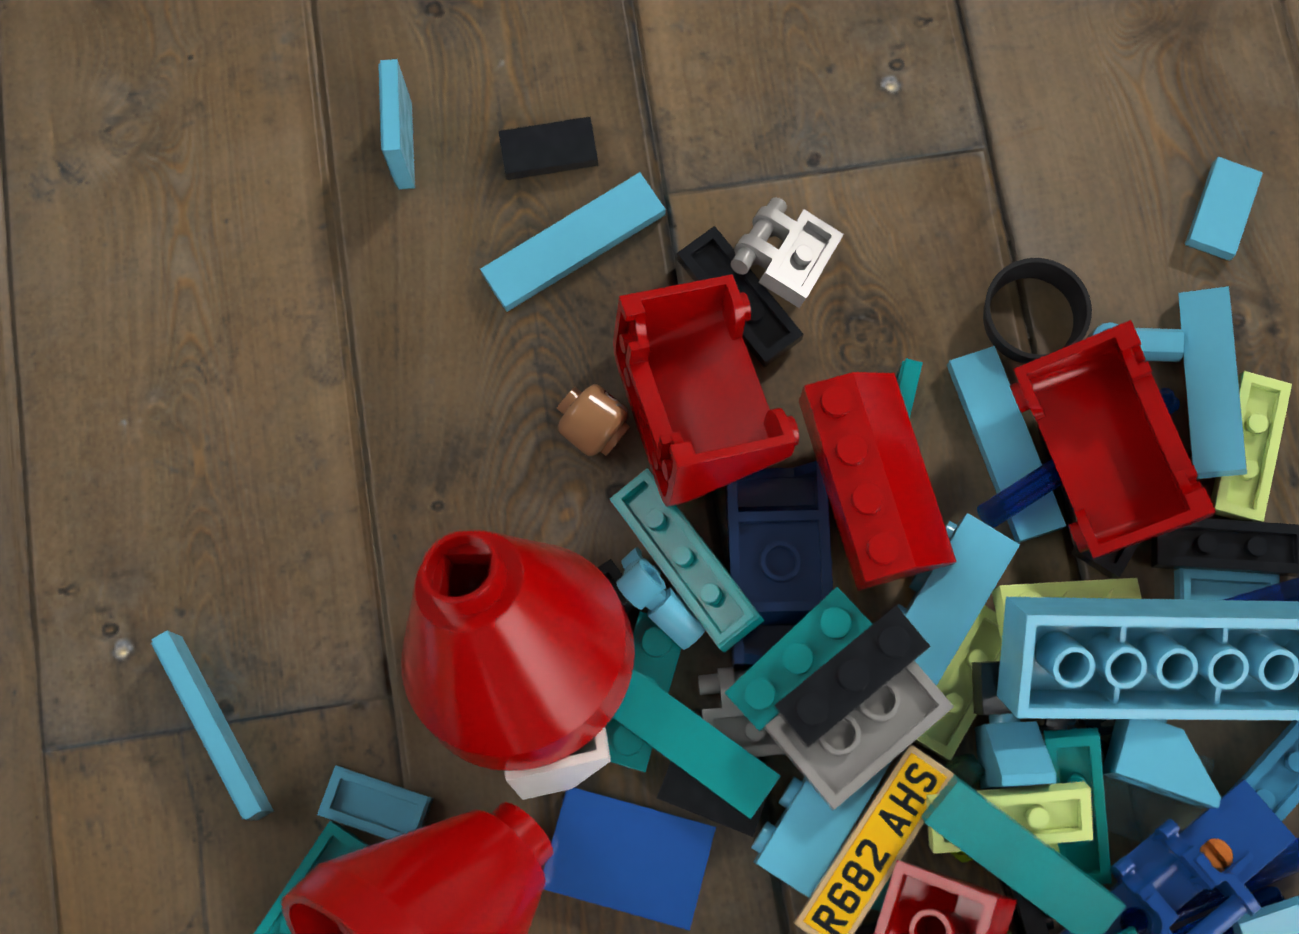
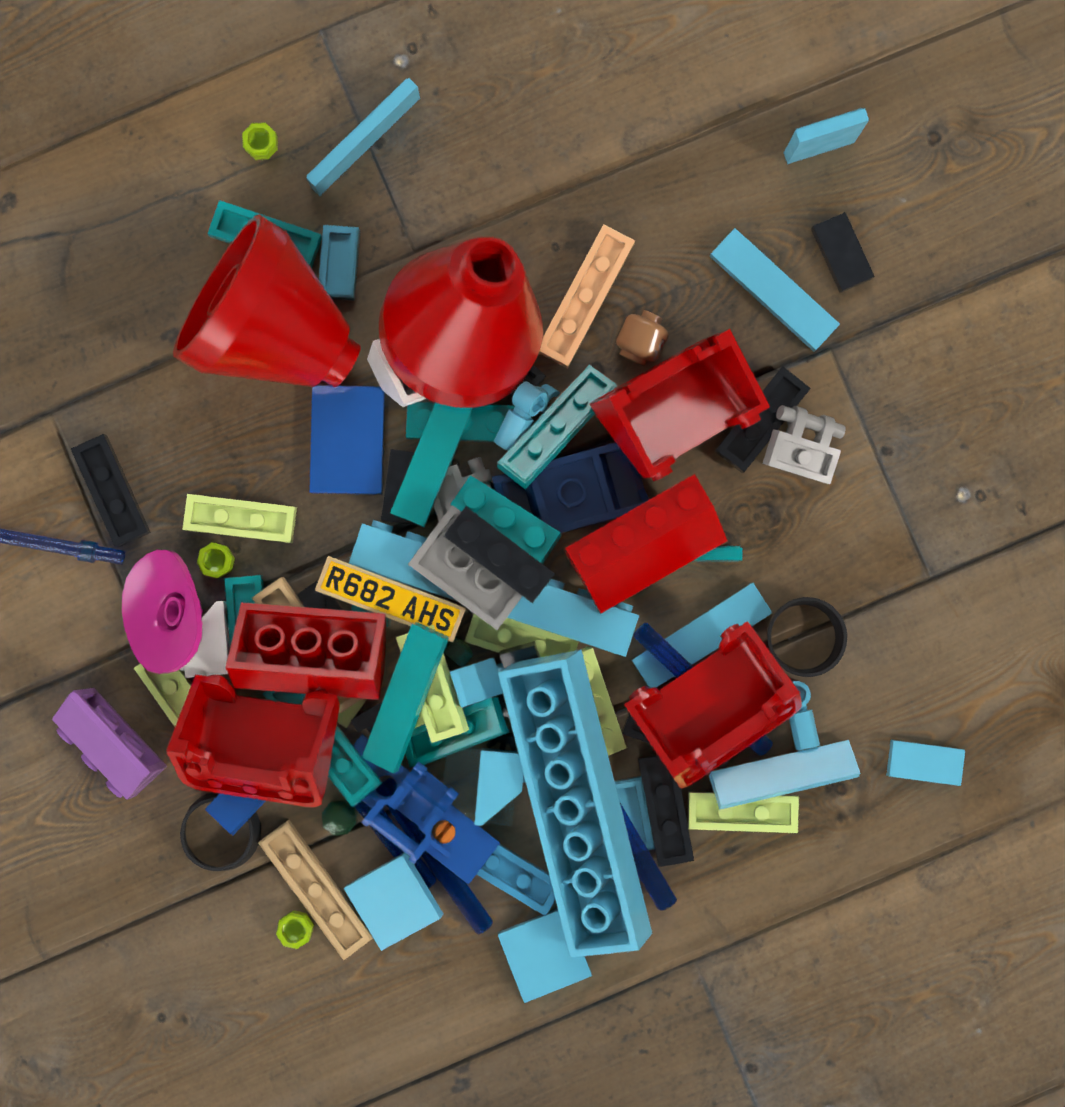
camera: 70 degrees right, 10 degrees up
(171, 876) = (260, 141): none -> lime tile
(516, 479) = (585, 296): none -> light nougat plate

